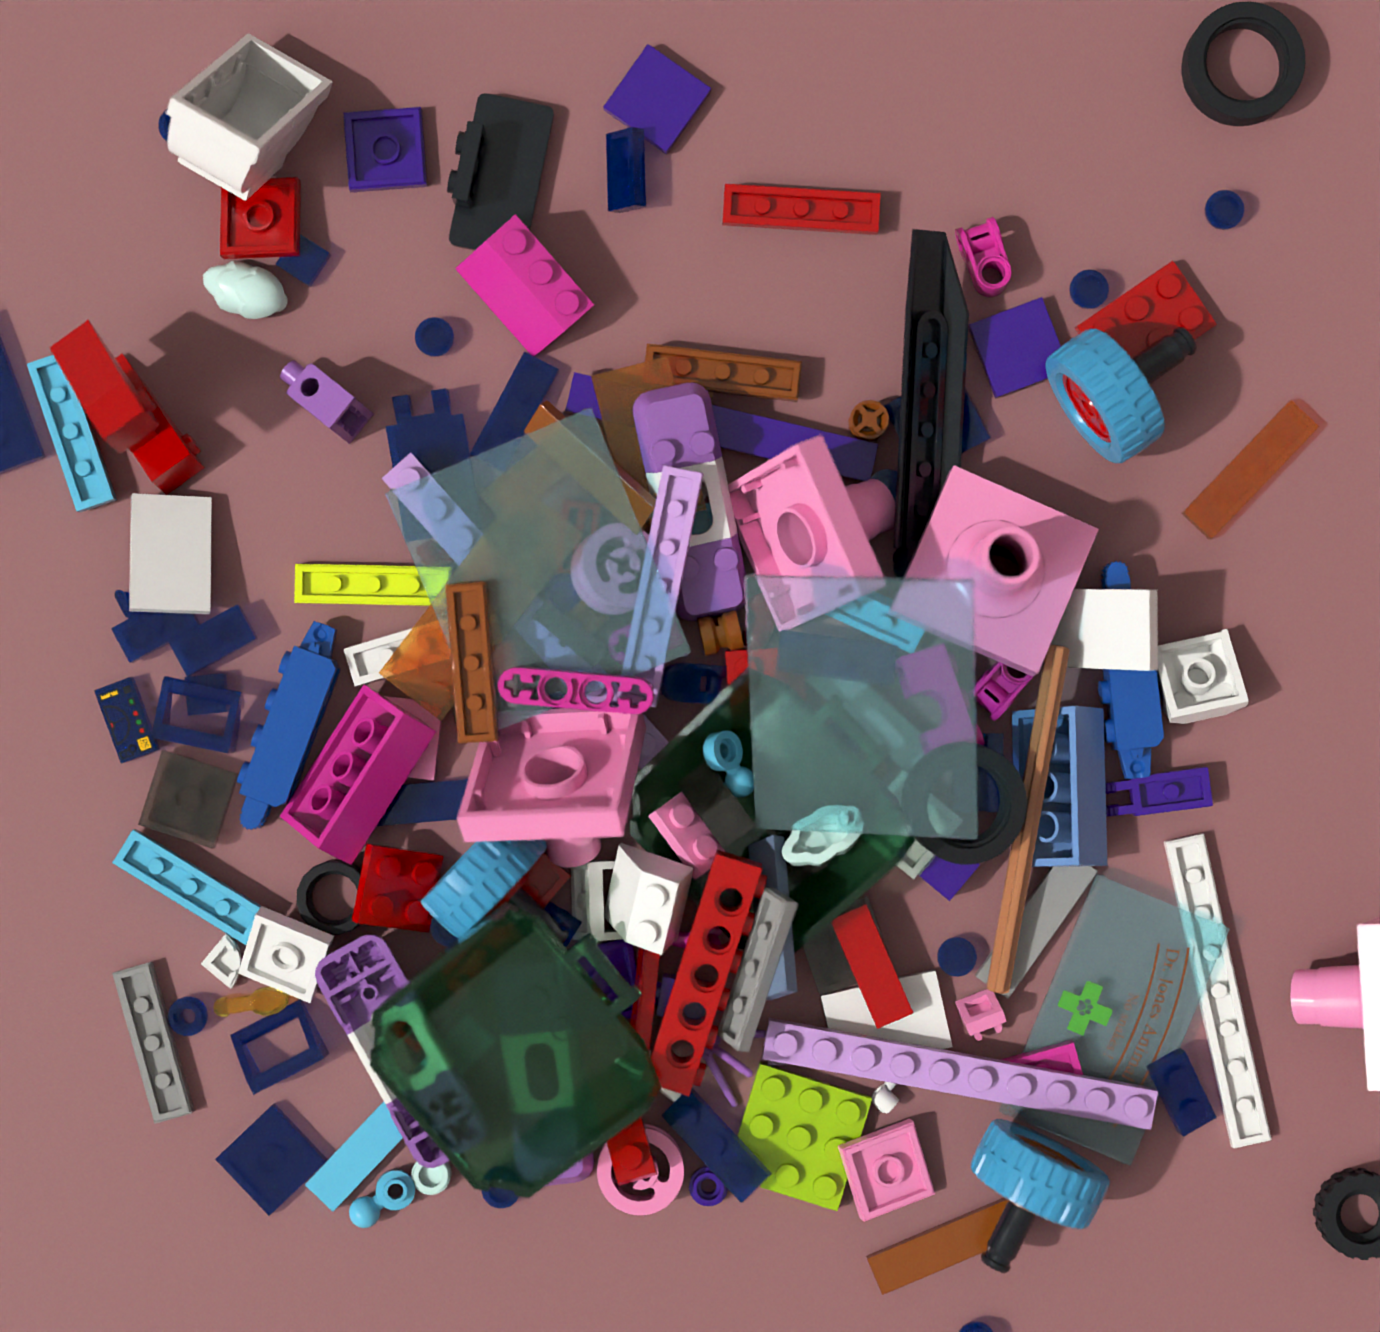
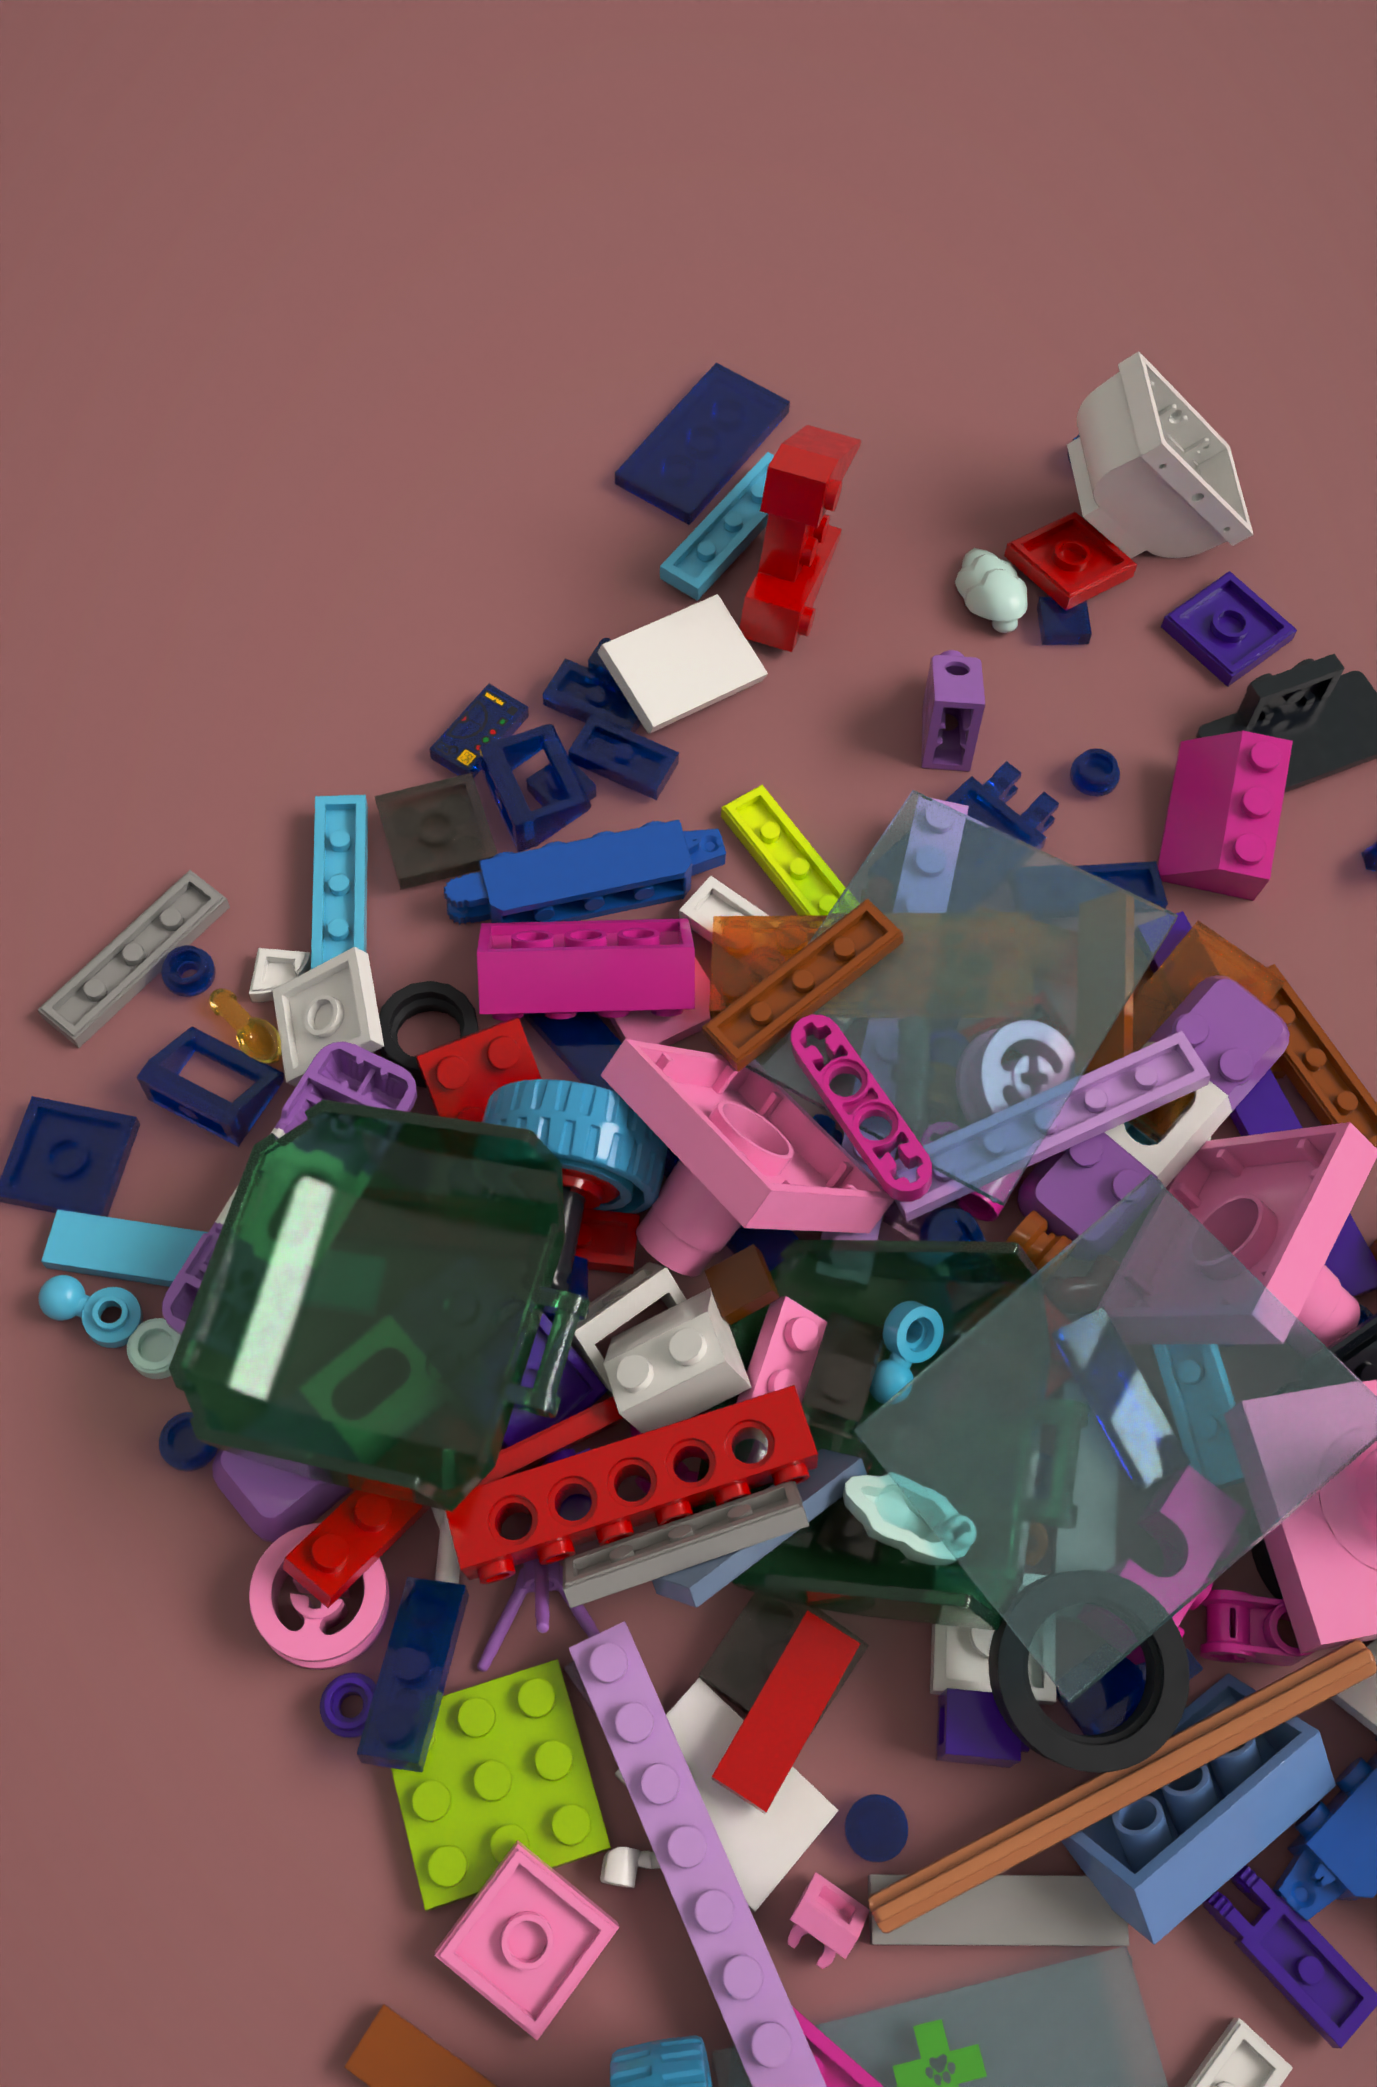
camera: 50 degrees right, 25 degrees down
(636, 833) = (742, 1284): none -> reddish brown tile

